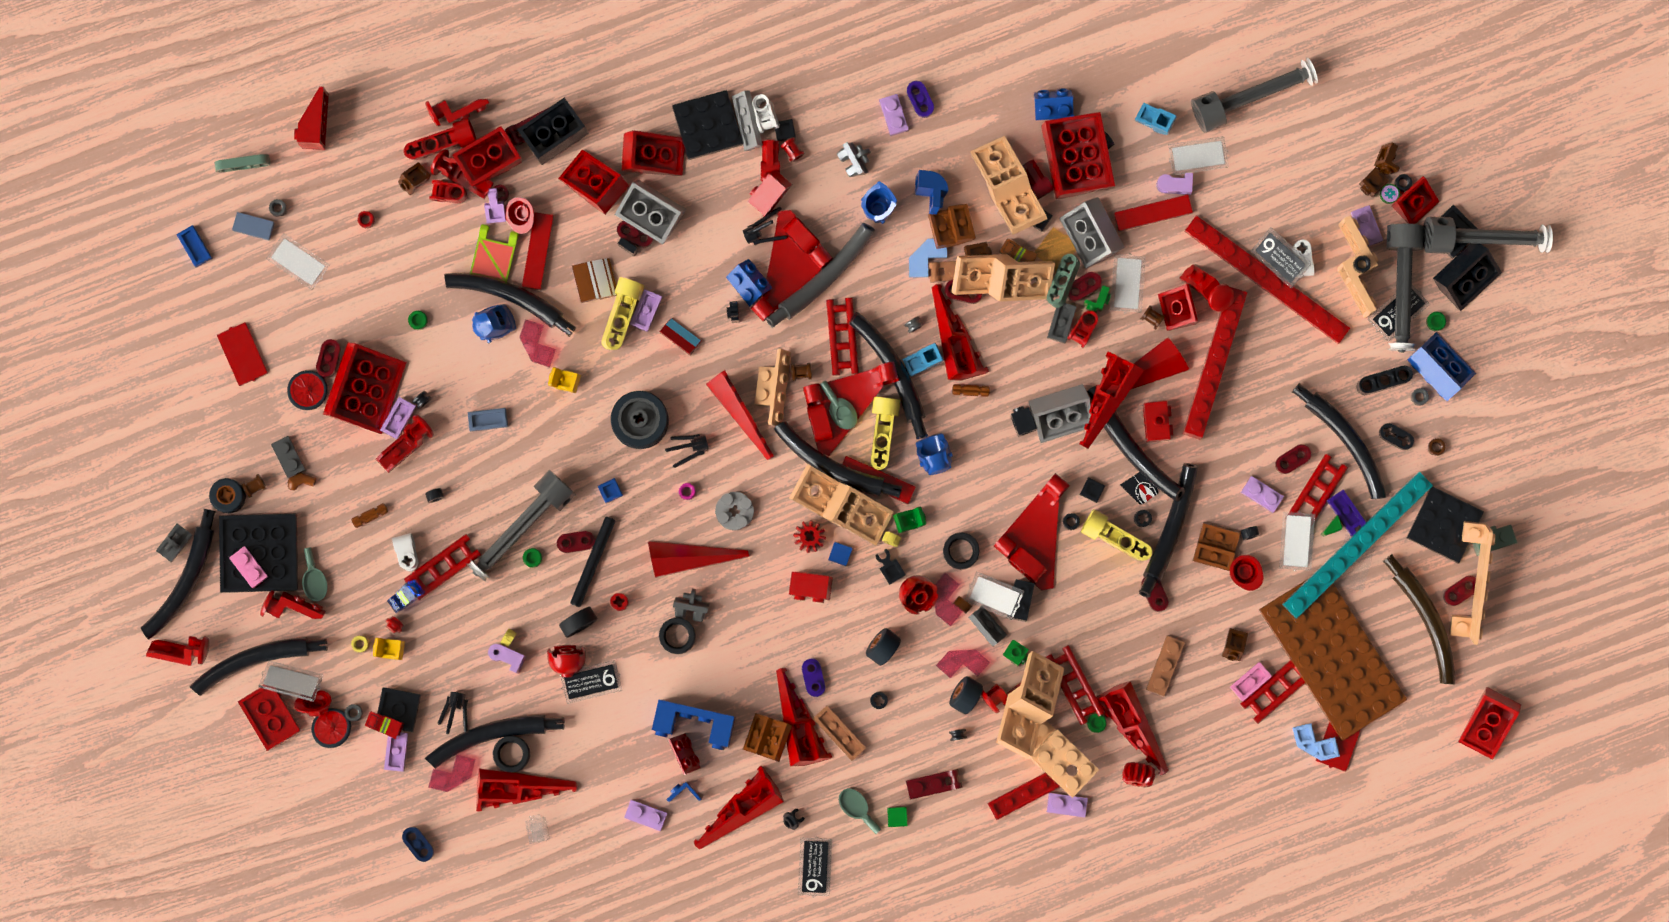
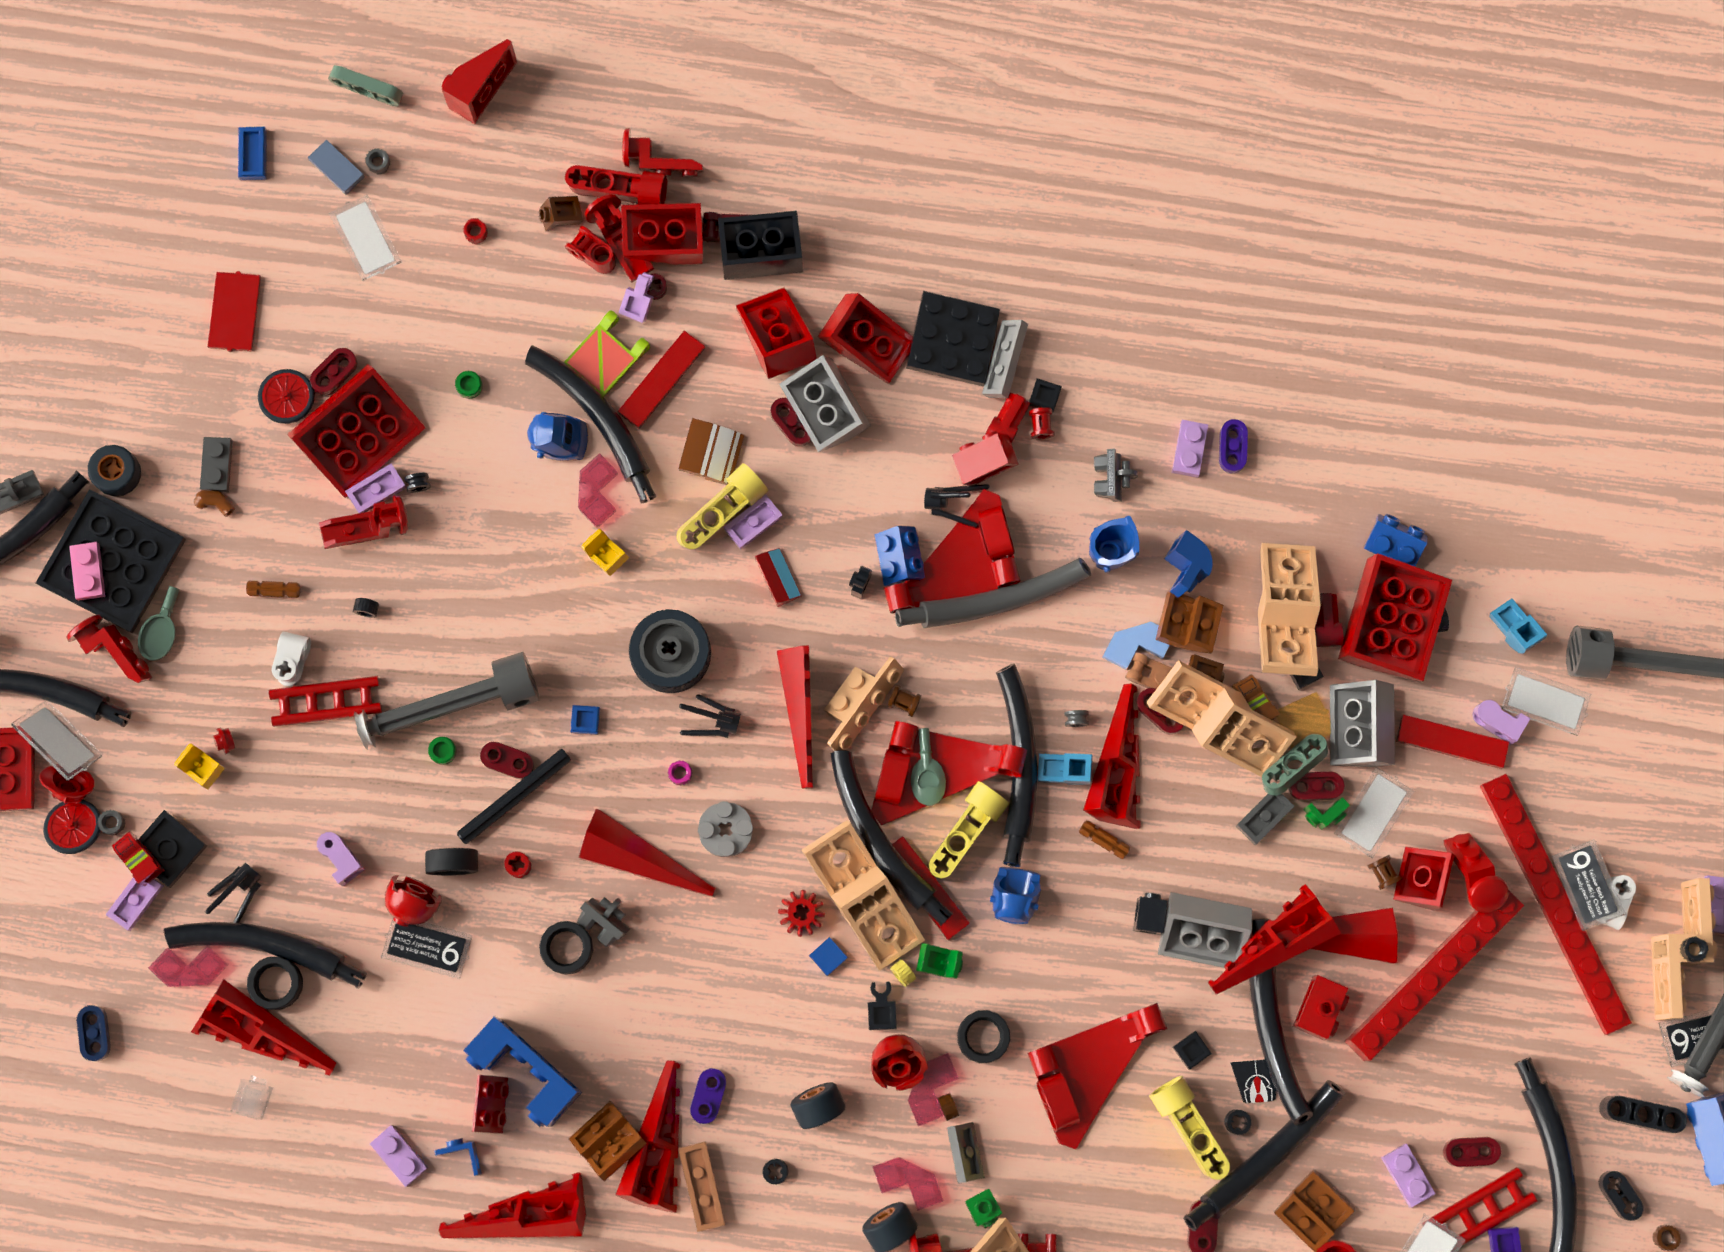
camera: 20 degrees right, 5 degrees down
(254, 485) = (153, 476): reddish brown bush -> none
(353, 643) = (160, 741): light yellow axle -> none
(405, 596) = (256, 712): clear blue leg -> none
(487, 419) = (484, 550): sand blue tile -> none
(508, 637) = (355, 834): light yellow axle -> none
(520, 214) = (664, 323): piece -> none
(627, 246) = (774, 432): black tile -> none
(766, 116) = (1031, 365): white piece -> none
(810, 586) = (768, 977): red brick -> none
(834, 346) = (963, 692): red bar -> none
(994, 595) = (995, 1118): clear piece -> none
(1022, 612) = (1025, 1142): black brick -> none
(1076, 519) = (1137, 1082): black axle -> none
(1083, 329) = (1286, 842): red piece -> none
(1250, 533) = (1366, 1217): black axle -> none
(1415, 401) = (1668, 1160): dark grey axle -> none

